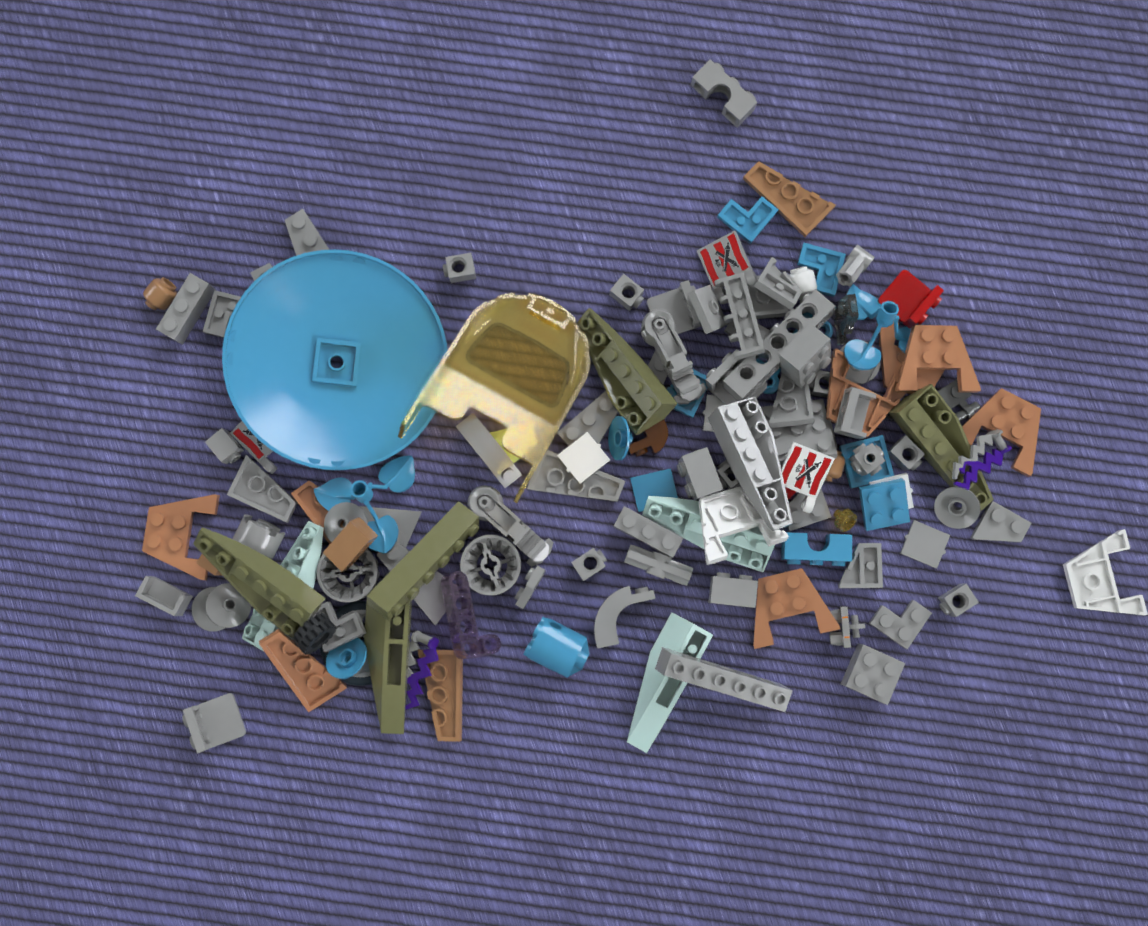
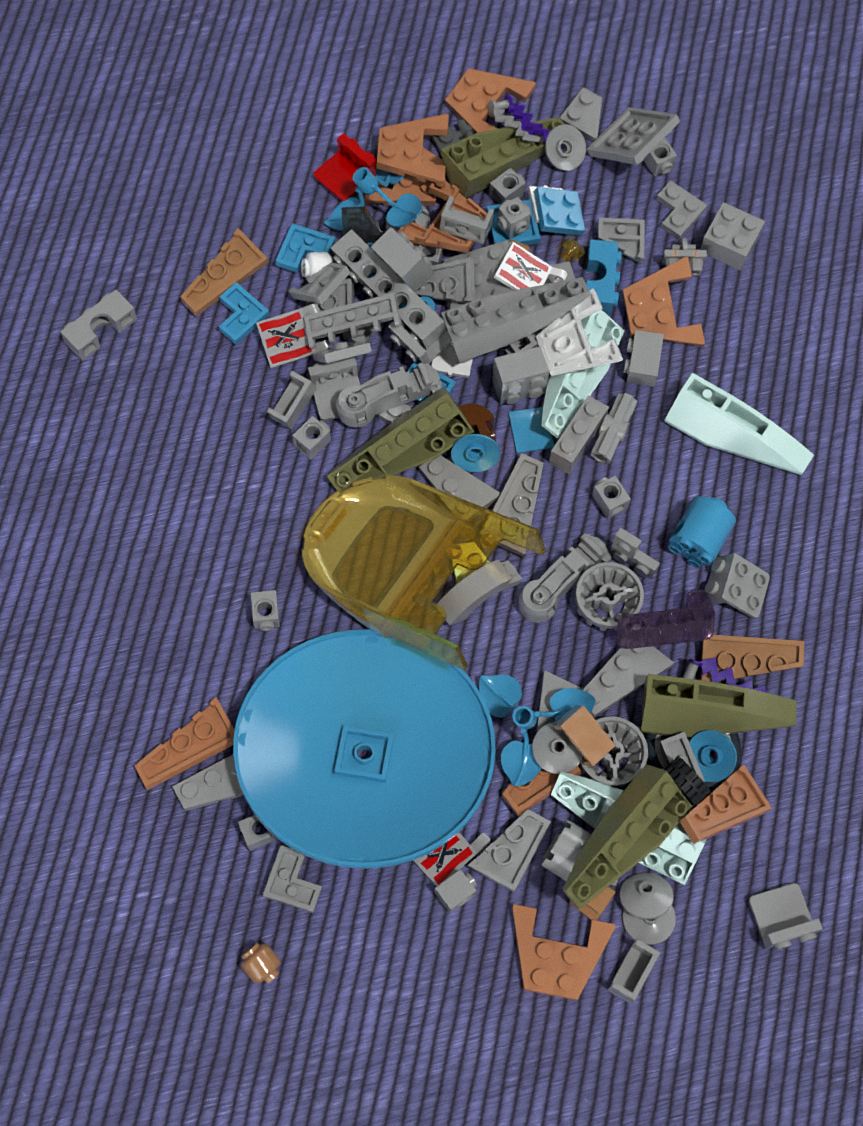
camera: 90 degrees left, 15 degrees down
(186, 308) = (283, 930): light grey brick -> none
(337, 217) = (197, 741): none -> nougat wing
(423, 561) = (606, 658): olive brick -> none
(510, 681) = (738, 584): none -> light grey bracket
(583, 457) = (494, 491): white piece -> none
(607, 615) = (661, 479): light grey arch -> none
(659, 271) = (293, 401): none -> light grey panel
(723, 679) = (739, 366): light grey brick -> none
(855, 264) = (303, 214): light grey piece -> none
(925, 544) = (600, 182): light grey piece -> none
(974, 572) = (633, 135): none -> light grey plate
(1093, 582) = (642, 41): white wing -> none

